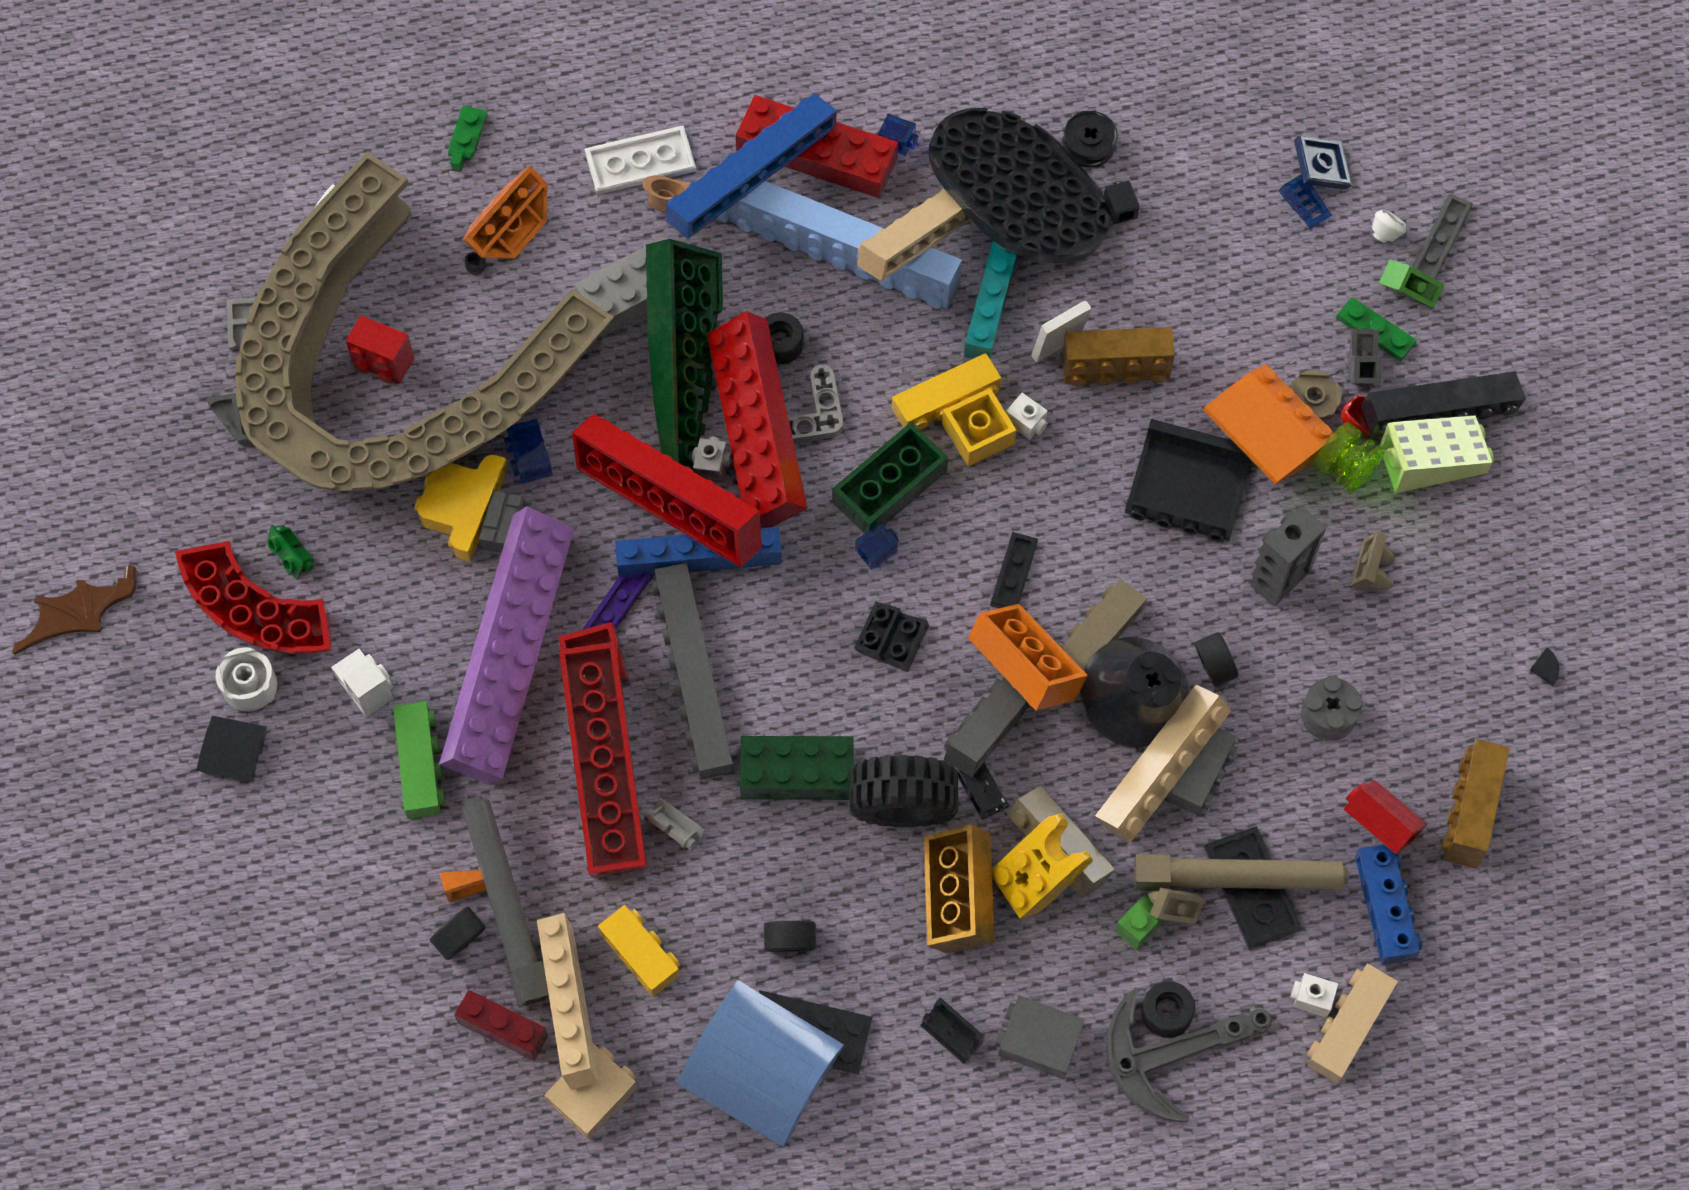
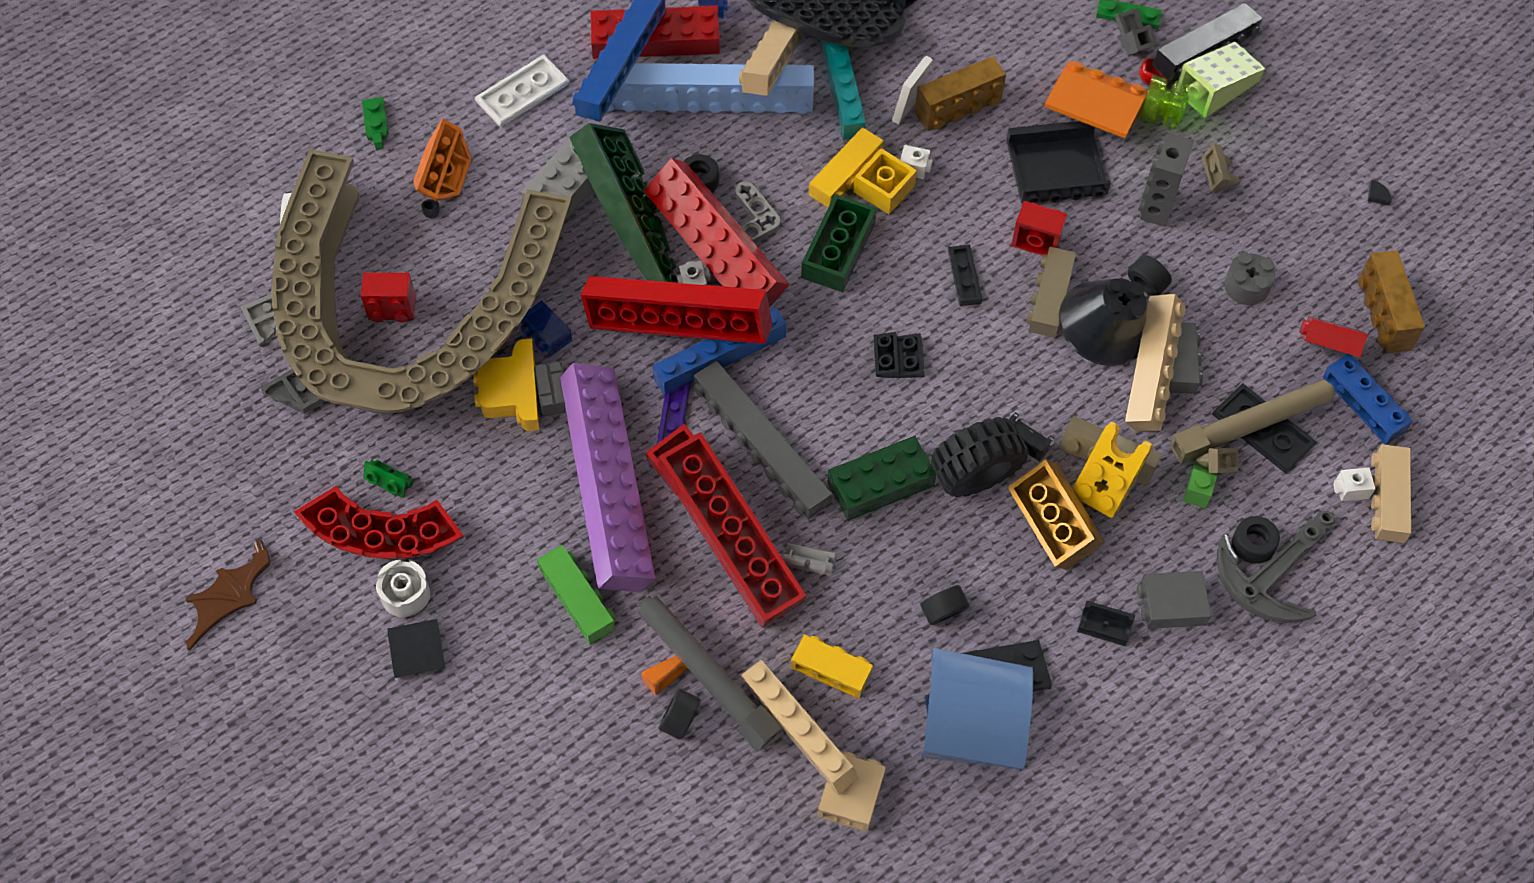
camera: 25 degrees left, 5 degrees down
(364, 681) = (502, 551): white brick -> none
(501, 1025) = (752, 770): dark red brick -> none
(661, 190) = (557, 106): medium nougat piece -> none
(877, 545) = (853, 294): clear blue brick -> none
(985, 728) = (1012, 383): dark grey brick -> none
(1027, 657) = (1014, 326): orange brick -> none
(1118, 552) = (1038, 228): none -> red brick
(1324, 387) = (1110, 62): dark tan plate -> none

